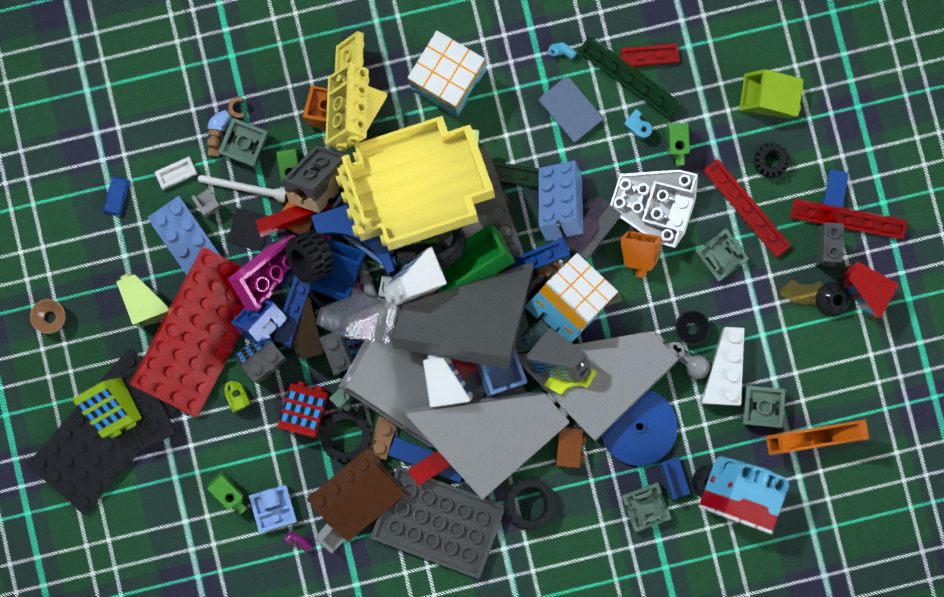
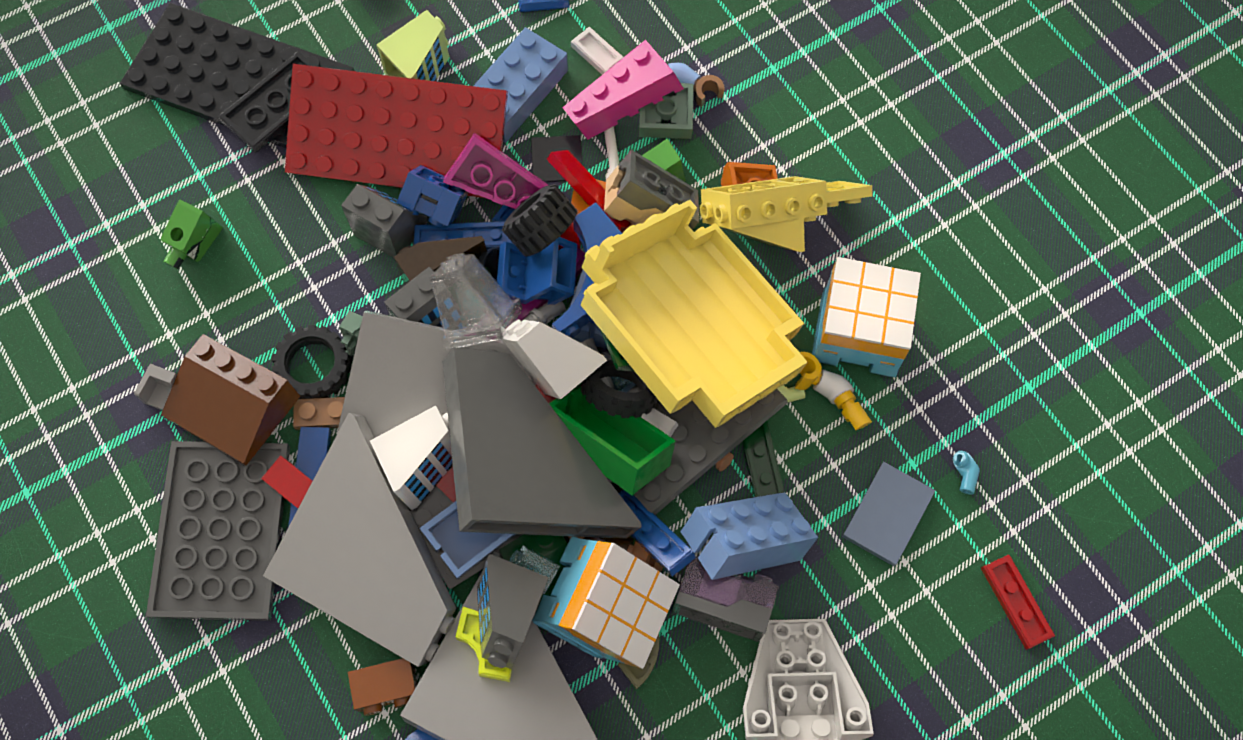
camera: 65 degrees right, 15 degrees down
(108, 407) = (260, 53): lime slope -> none
(206, 203) = (566, 90): light grey panel -> none
(224, 167) = (623, 90): none -> wedge
(236, 396) = (325, 210): lime rock -> none
(272, 508) = (183, 302): light blue plate -> none
(298, 539) = (149, 345): magenta arm -> none
(303, 409) = (326, 290): slope -> none
(480, 110) = (834, 388): none -> yellow piece
(549, 504) = (245, 647): black tyre -> none
(629, 77) = (972, 583): dark green tile -> none
(637, 127) = (904, 620): medium azure leg -> none
(640, 251) = (720, 687): orange torso -> none
(674, 133) = (923, 681): bright green torso -> none

